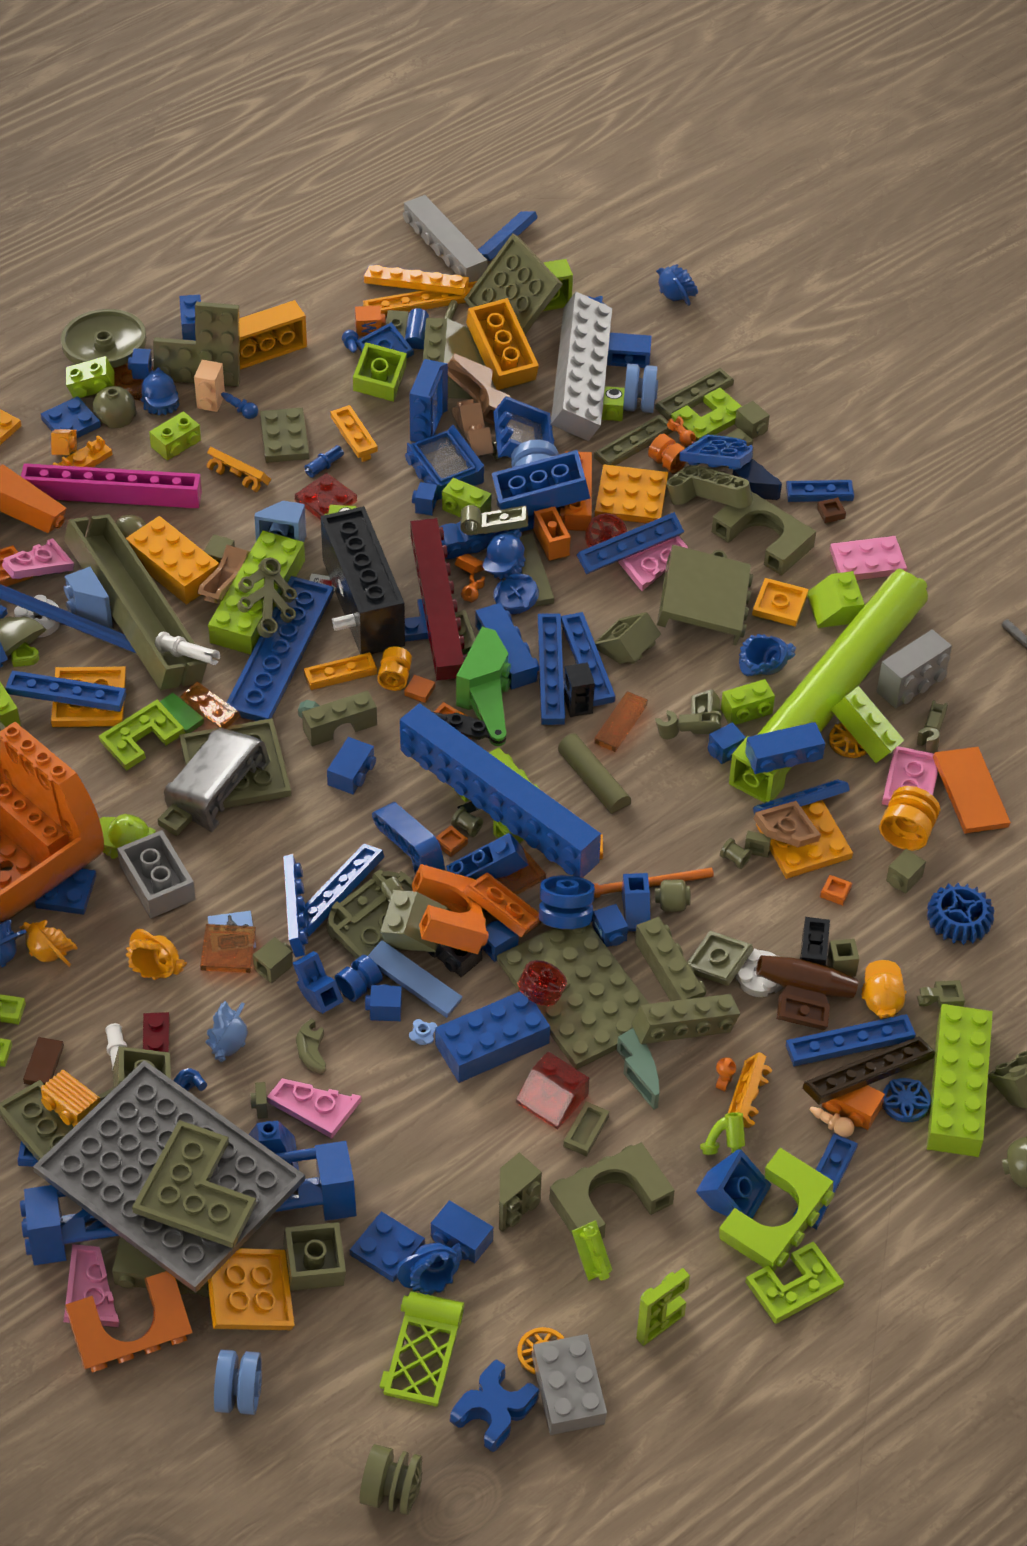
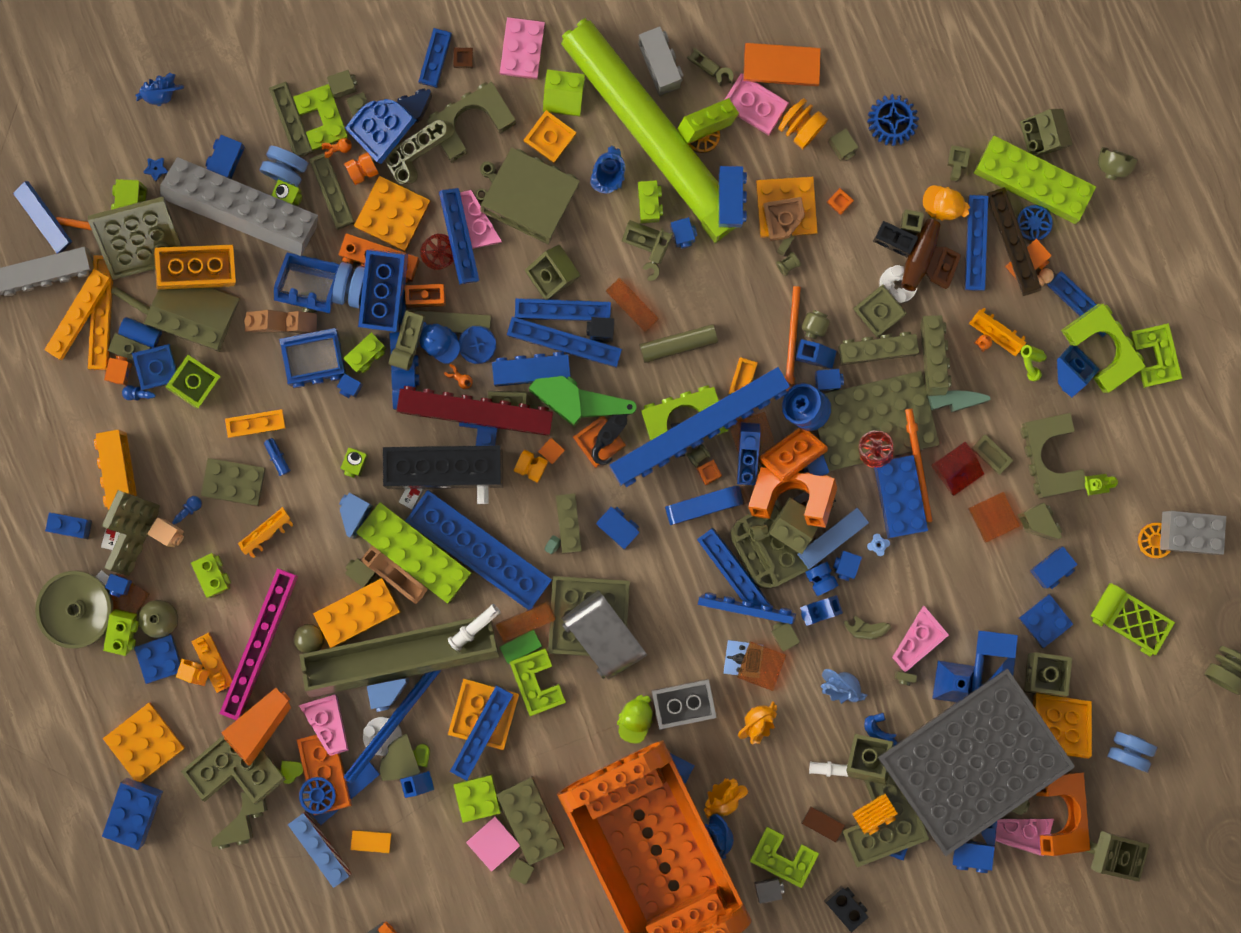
camera: 75 degrees left, 35 degrees up
(85, 1397) = (1118, 856): none -> olive brick
(156, 1031) = (824, 738): dark red plate -> none
(159, 393) = (155, 576): blue hair -> none
(174, 820) = (629, 677): olive plate -> none
(181, 1192) = (1004, 759): olive plate -> none
(269, 595) = (434, 547): olive plant -> none
(323, 493) = (318, 467): clear red plate -> none
(340, 671) = (513, 508): light orange tile -> none
(428, 399) = (251, 353): blue window -> none
(430, 1268) = (1077, 597): blue hair -> none
(469, 563) = (432, 371): orange tile -> none
(477, 383) = (233, 302): medium nougat arch -> none
(494, 1405) = (1189, 585): blue piece -> none
(502, 1145) = (994, 517): none -> clear orange tile
(583, 1021) = (912, 429): none -> orange bar
(662, 1306) = (1164, 453): lime plate -> none
(808, 795) = (754, 206): blue tile -> none

